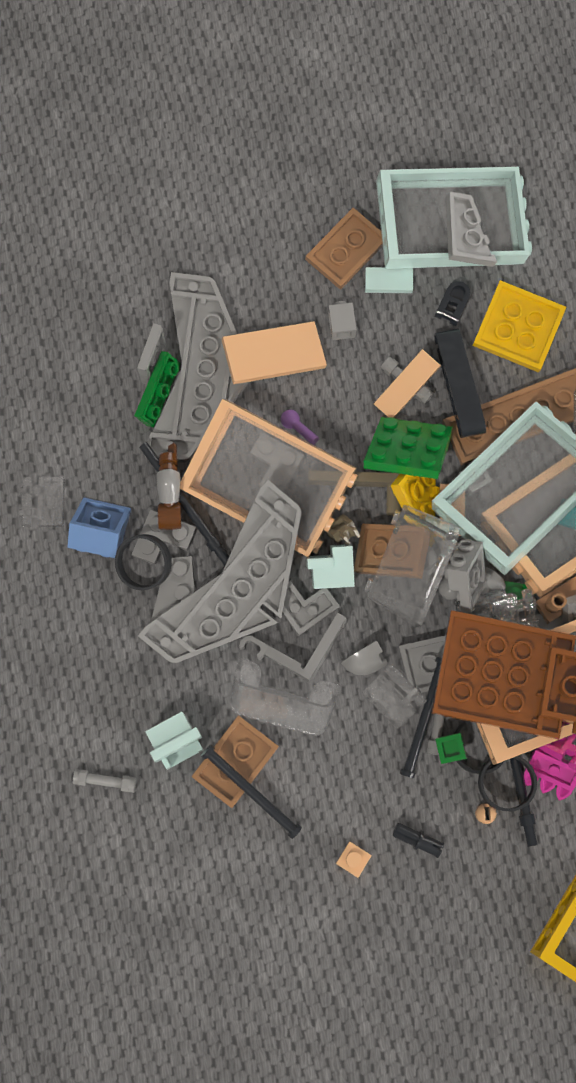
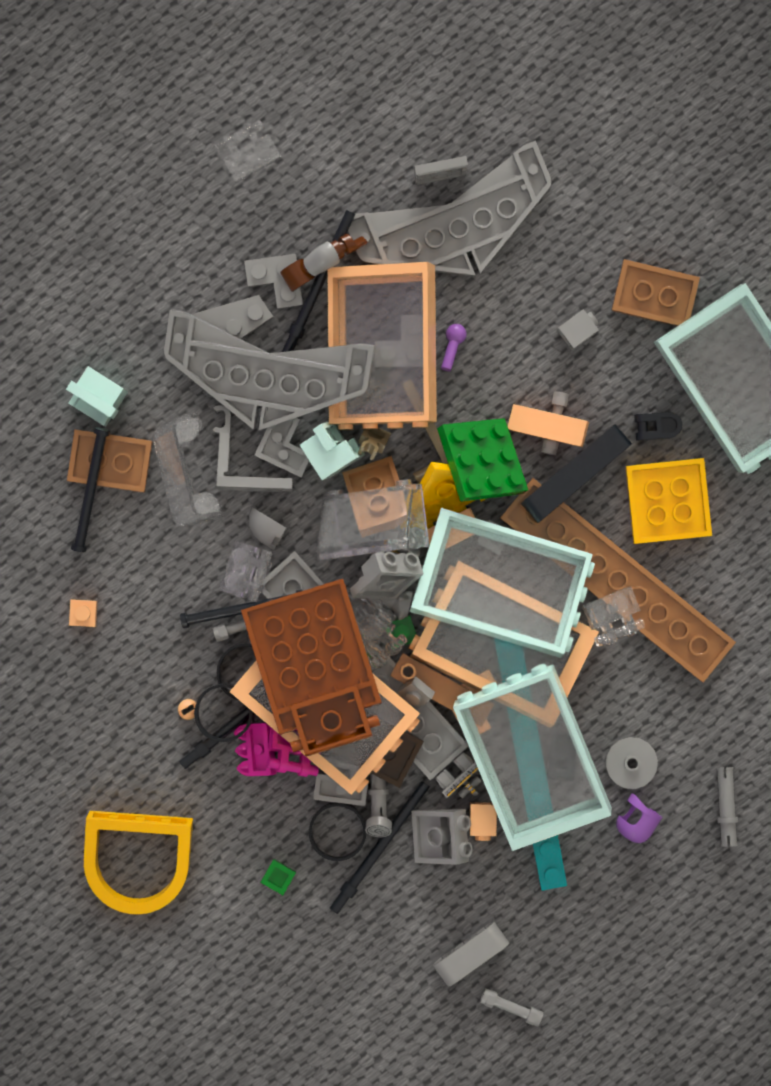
camera: 65 degrees right, 10 degrees up
(83, 777) = (21, 333): light grey bar -> none
(98, 527) = (252, 216): medium blue slope -> none
(119, 562) = (218, 269): black tyre -> none
(157, 389) = (413, 194): green tile -> none
(273, 352) = (509, 283): light nougat tile -> none
(388, 280) = (645, 351): light aqua tile -> none
(418, 839) = (131, 660): black axle -> none
(451, 748) = (225, 646): green plate -> none
(464, 232) = (726, 399): light grey wing -> none

